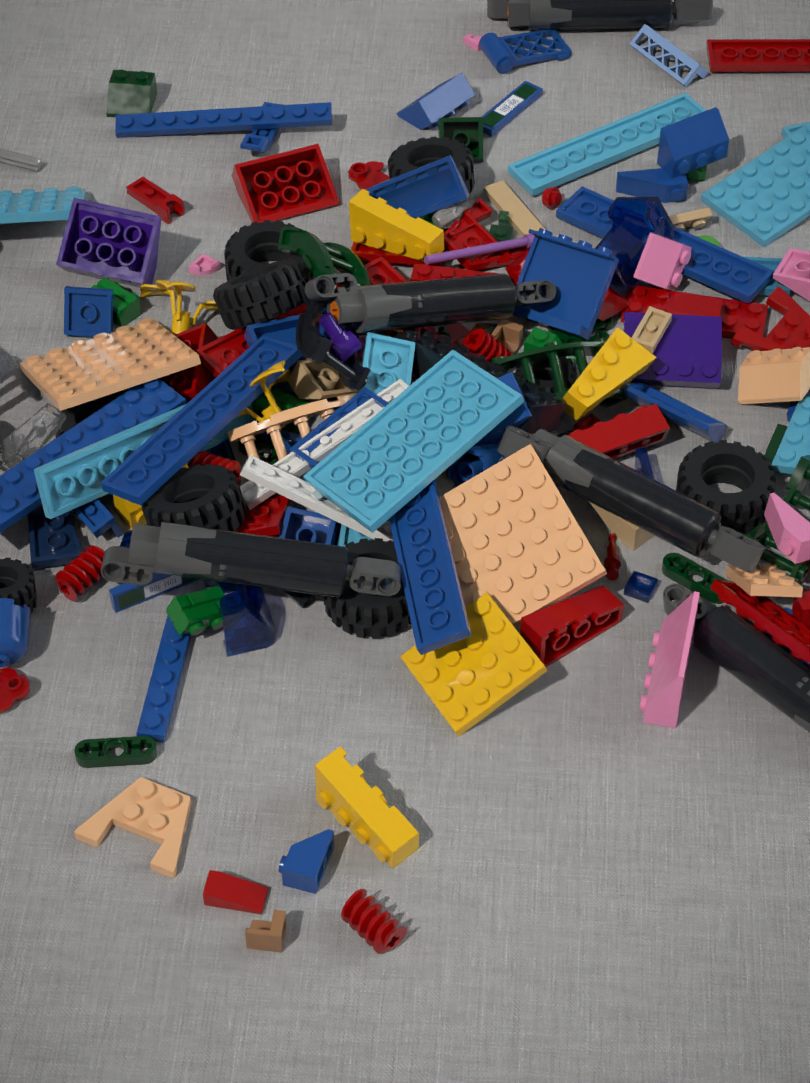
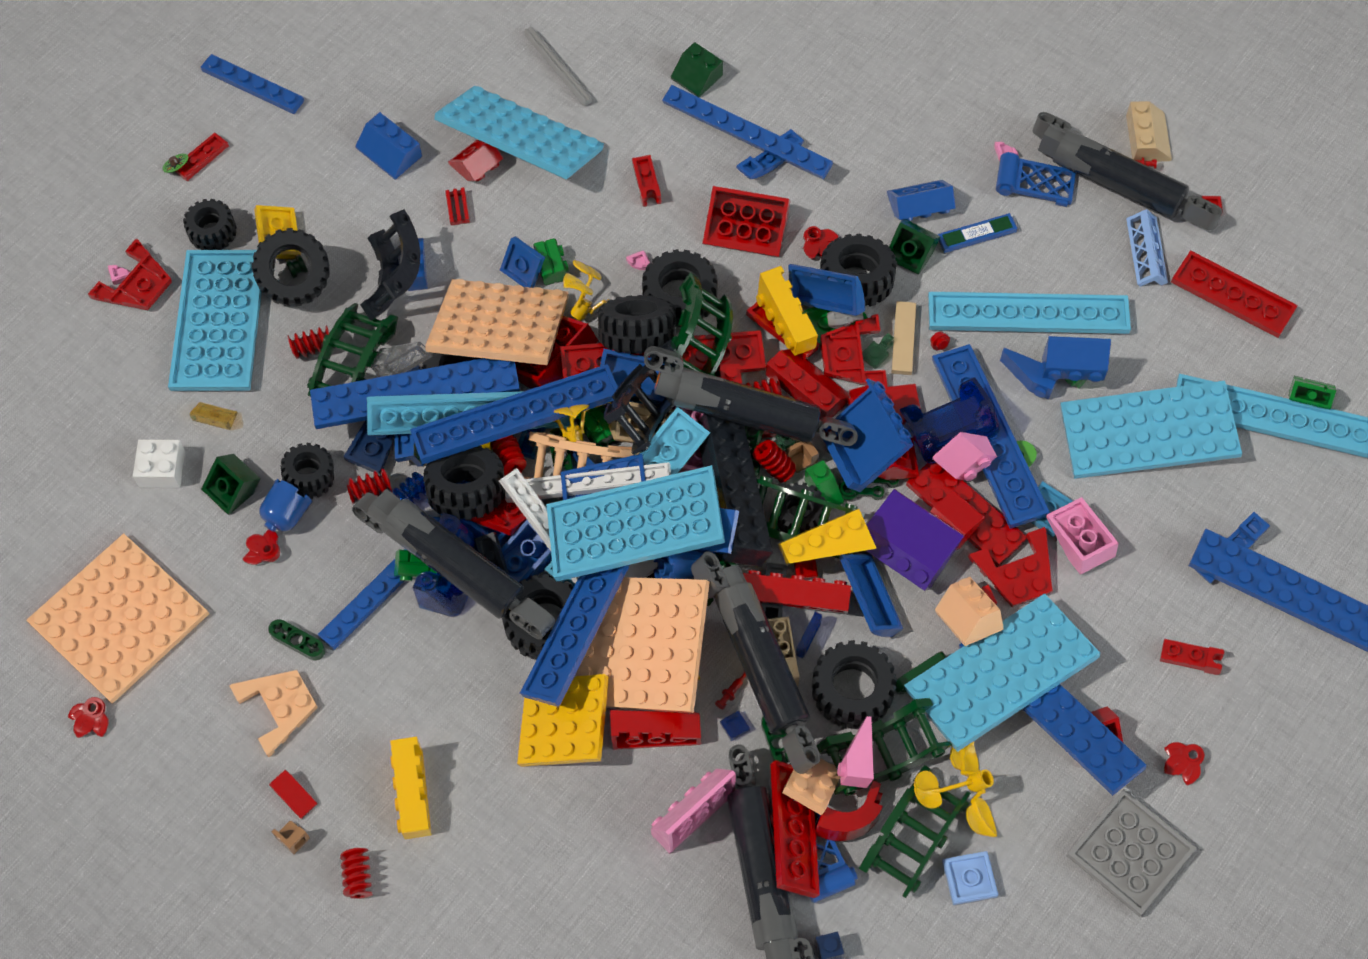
camera: 35 degrees right, 15 degrees up
(110, 243) = (573, 213): dark purple slope -> none
(307, 862) = (351, 802): blue slope -> none
(343, 342) = (651, 405): dark purple pin -> none
(479, 250) = (886, 374): medium lavender bar -> none
(652, 328) = (896, 518): tan plate -> none
(694, 218) = (1019, 420): tan plate -> none

